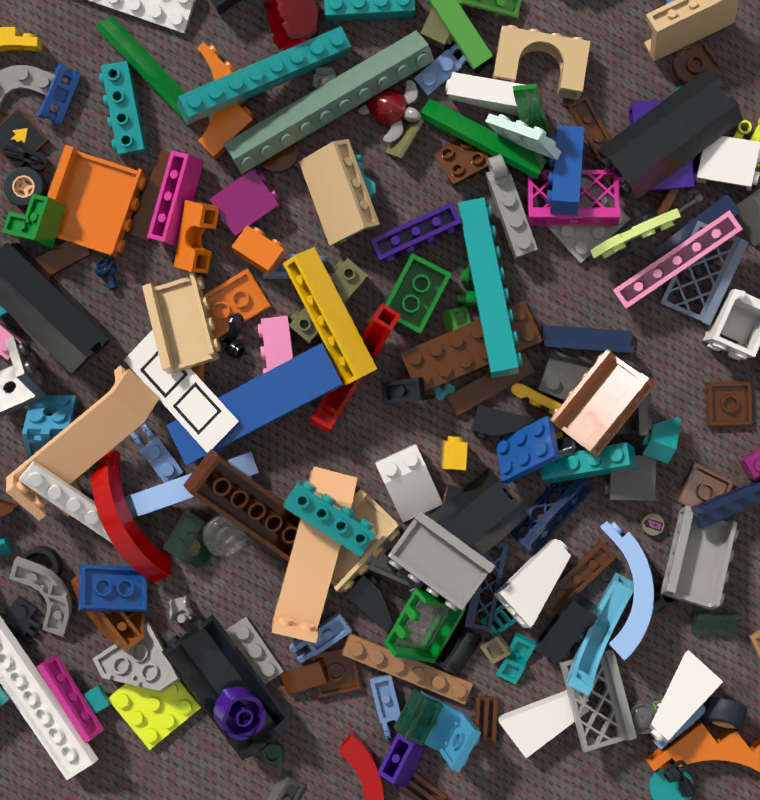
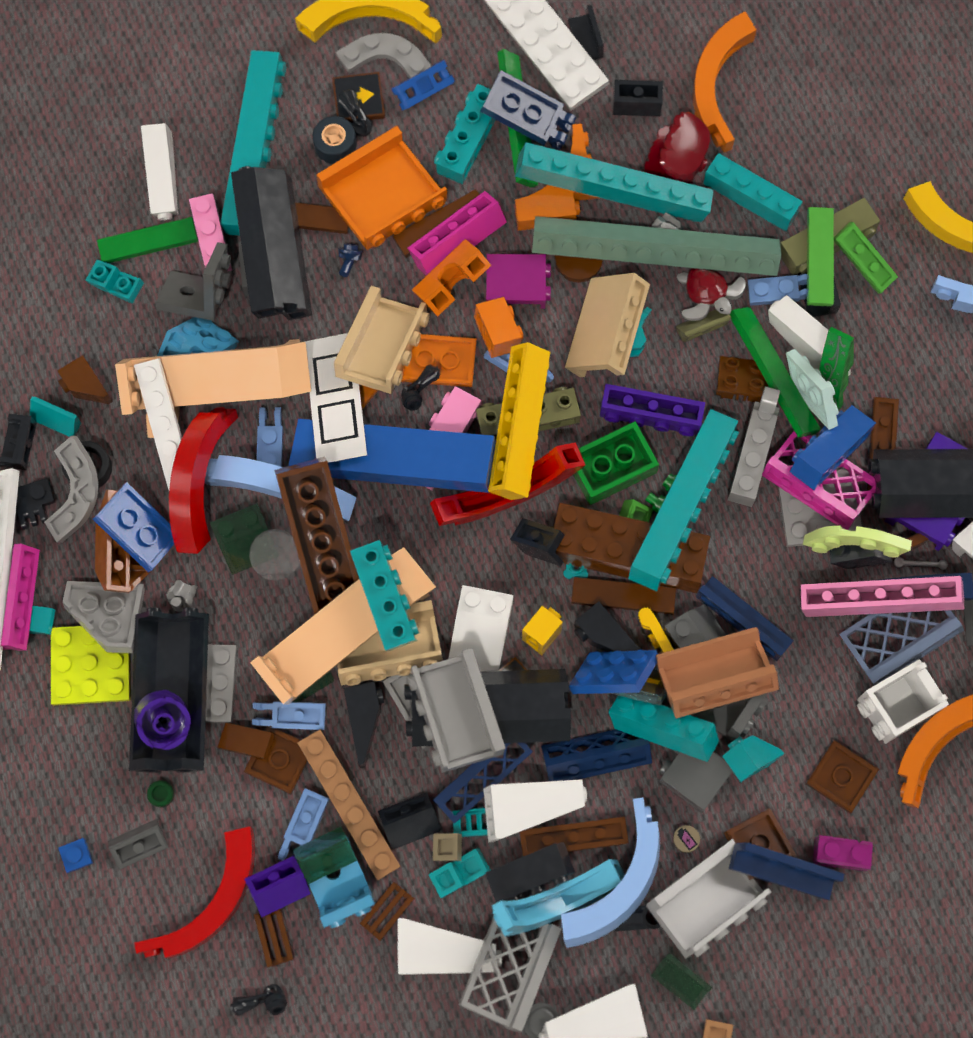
camera: 30 degrees right, 15 degrees down
(38, 224) = (321, 173): green panel -> none
(154, 60) = (527, 111): none -> tile
(422, 627) = (395, 768): green window -> none
(568, 52) = (907, 351): tan arch -> none

